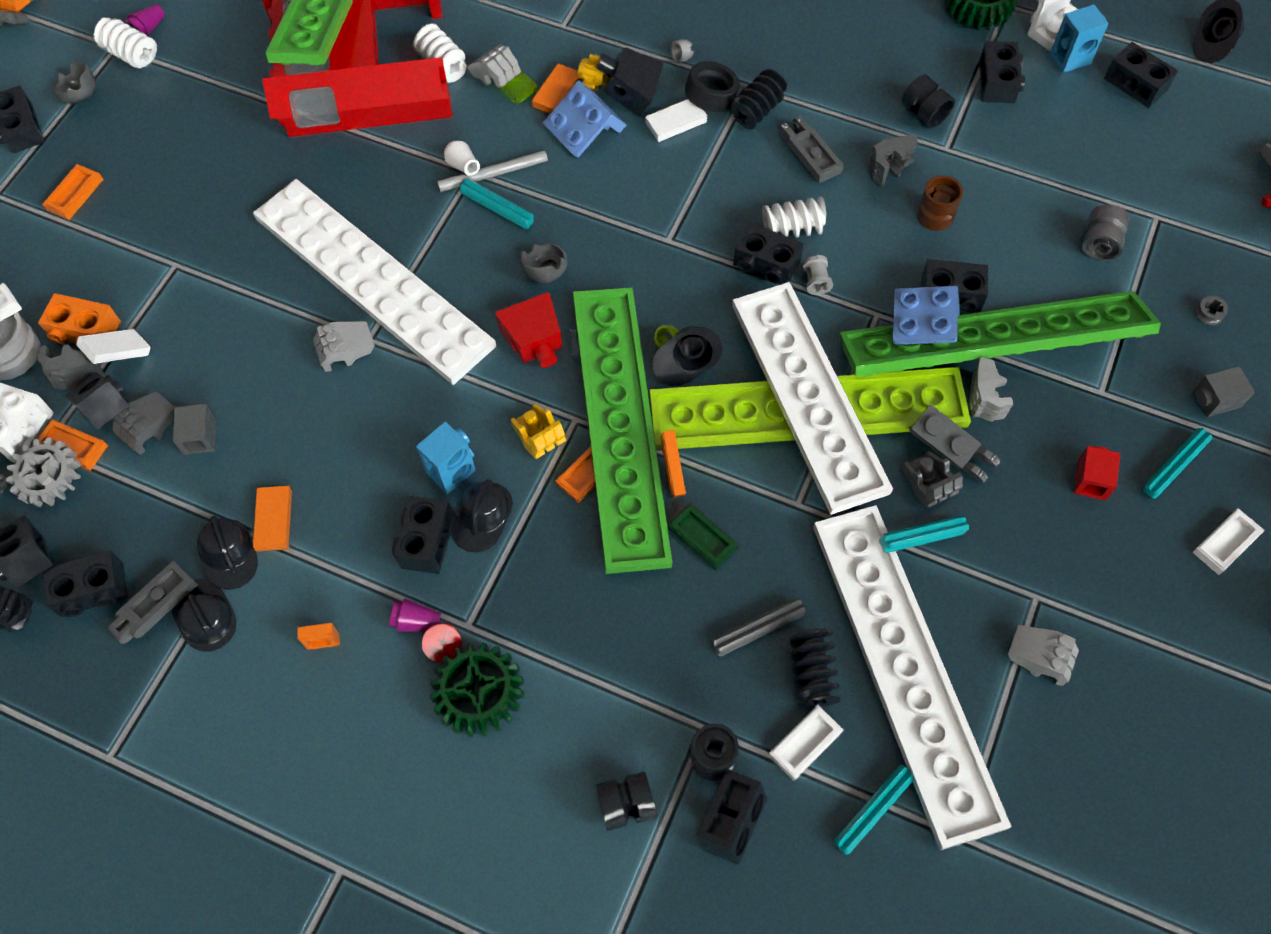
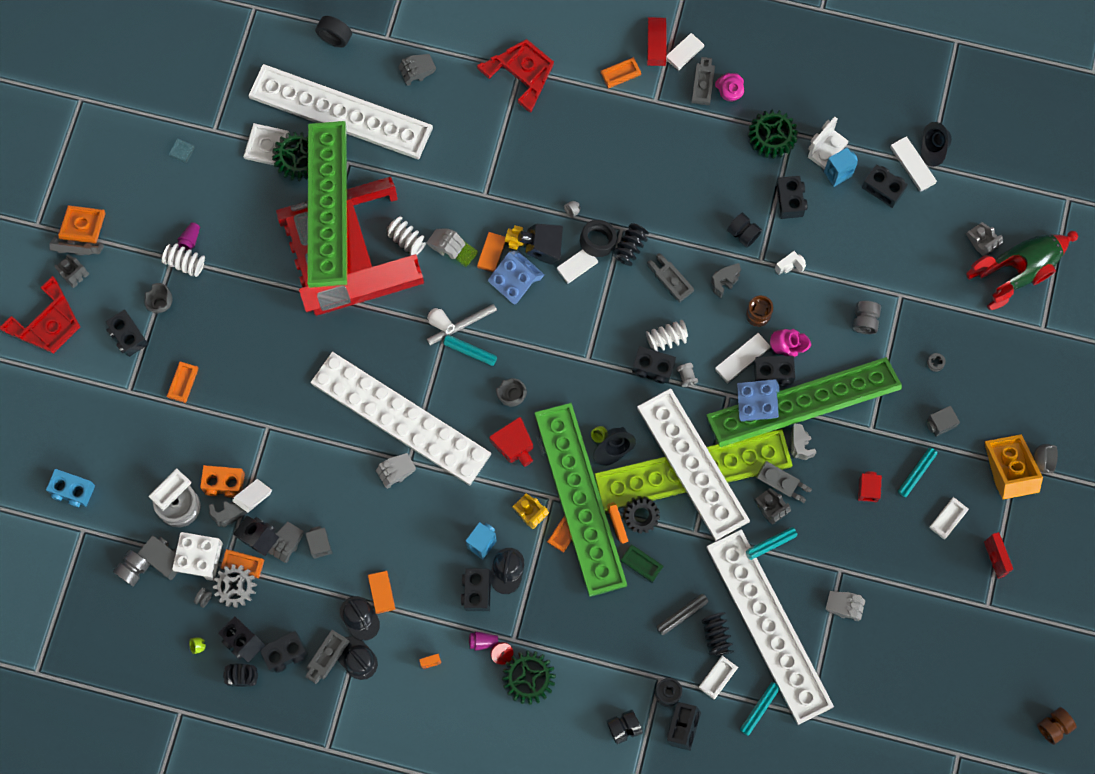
camera: 10 degrees left, 10 degrees up
(728, 444) = (638, 503): none -> black tyre
(903, 266) = (742, 358): none -> white tile
(981, 248) = (789, 342): none -> dark pink head
(991, 148) = (789, 262): none -> white bracket
(1184, 57) = (913, 164): none -> white tile

